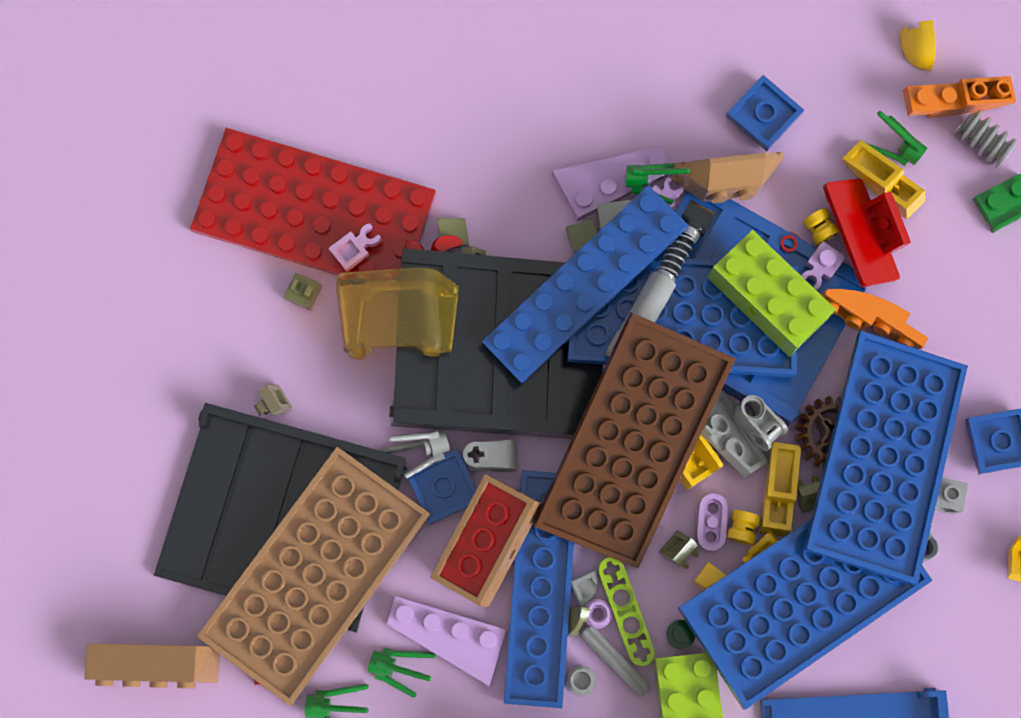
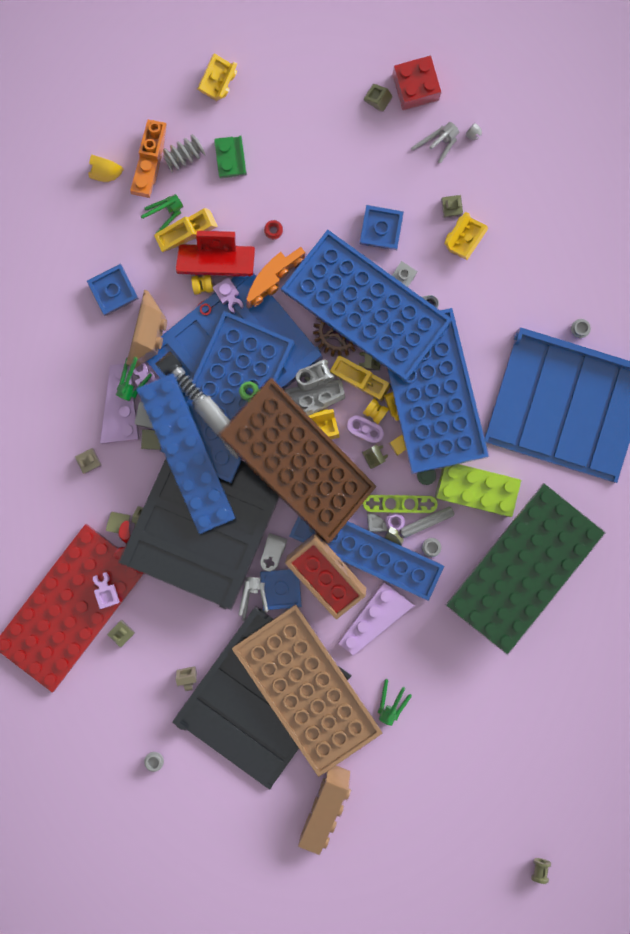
camera: 65 degrees left, 10 degrees up
(140, 399) = (154, 761): none -> light grey plate
(383, 664) = (378, 665): green plant -> none
(396, 310) = (159, 580): clear yellow windscreen -> none
(522, 163) = (88, 460): none -> dark tan tile
(706, 330) = (242, 391): none -> bright green plate
(771, 293) = (235, 336): lime brick -> none
(939, 289) = (270, 224): none -> red plate

